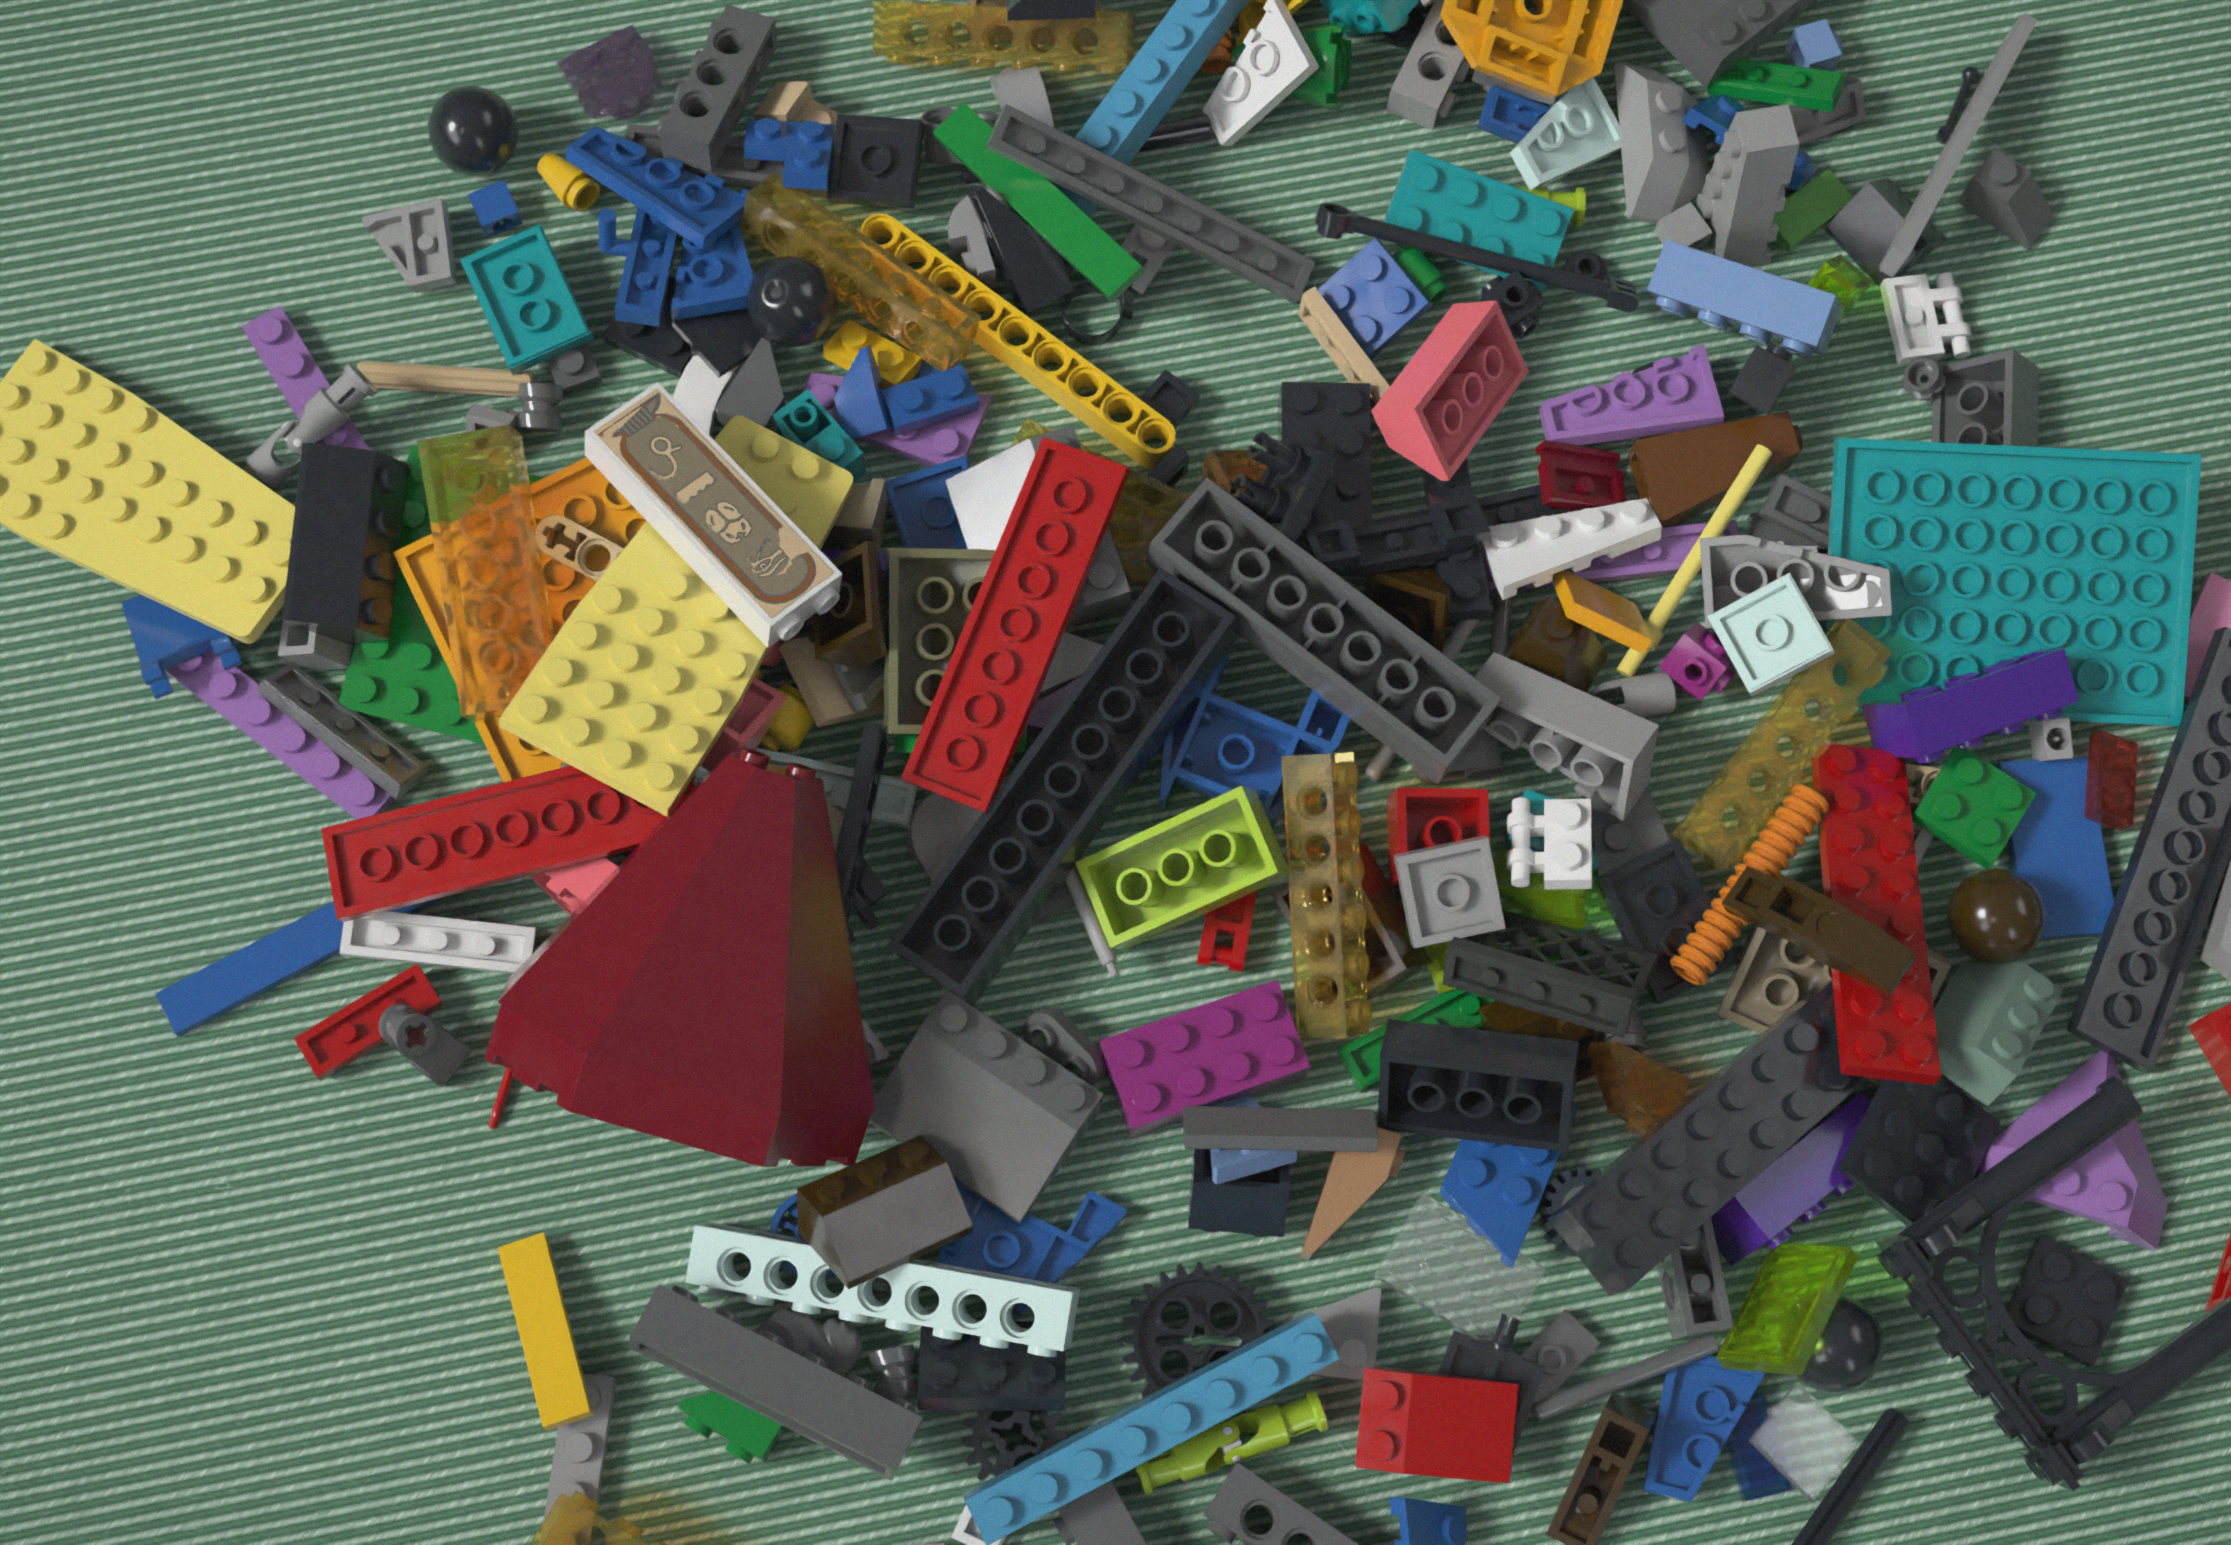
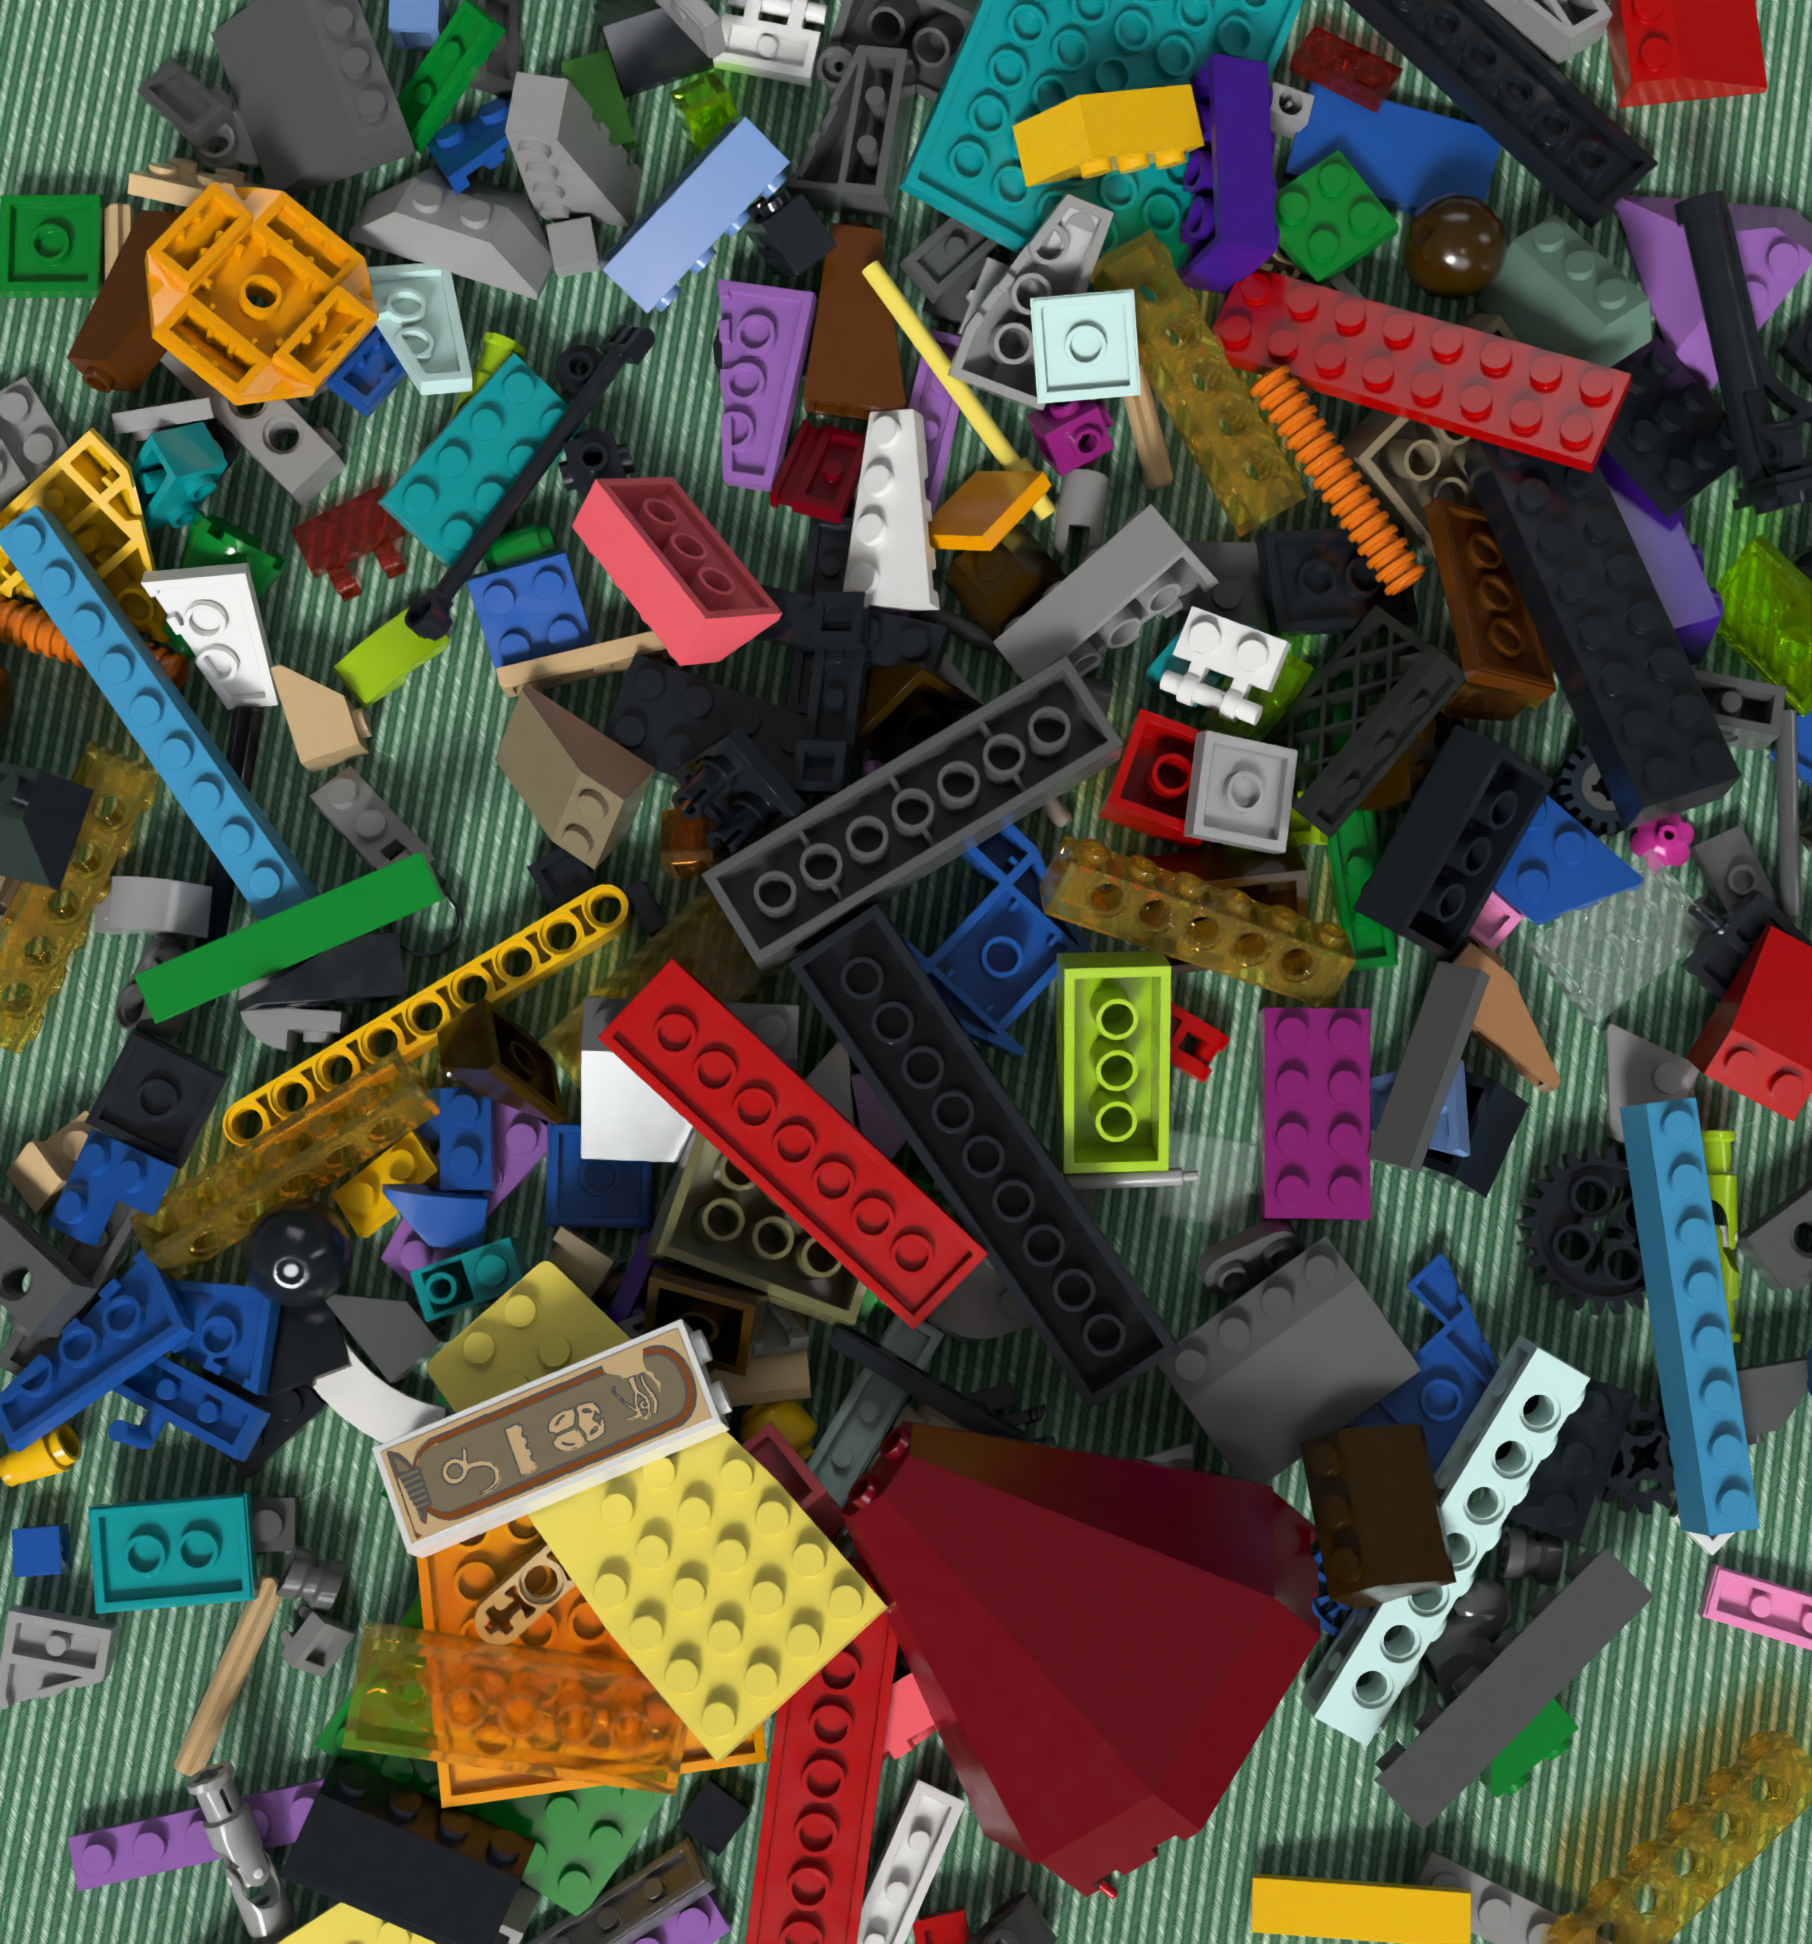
camera: 60 degrees left, 10 degrees up
(451, 777) = (714, 1816): none -> black tile
(1000, 399) = (501, 1062): none -> dark brown slope
(1118, 1003) = (1223, 1182): none -> clear piece
(1149, 203) = (333, 816): dark grey plate -> none
(1220, 174) = (321, 721): none -> tan slope
(1249, 376) = (572, 777): none -> dark tan slope
(1290, 208) = (385, 659): none -> lime slope
(1373, 144) = (346, 534): none -> clear red plate
(1429, 1156) = (1494, 922): none -> bright pink tile
(1555, 1294) = (1651, 836): none -> dark pink plant
(1693, 1041) = (1484, 604): none -> reddish brown tile
(1730, 725) = (1148, 437): none -> tan axle
(1821, 927) = (1435, 430): dark brown slope -> none
(1871, 407) = (862, 140): none -> dark grey wedge
(1957, 590) = (1109, 134): none -> yellow wedge

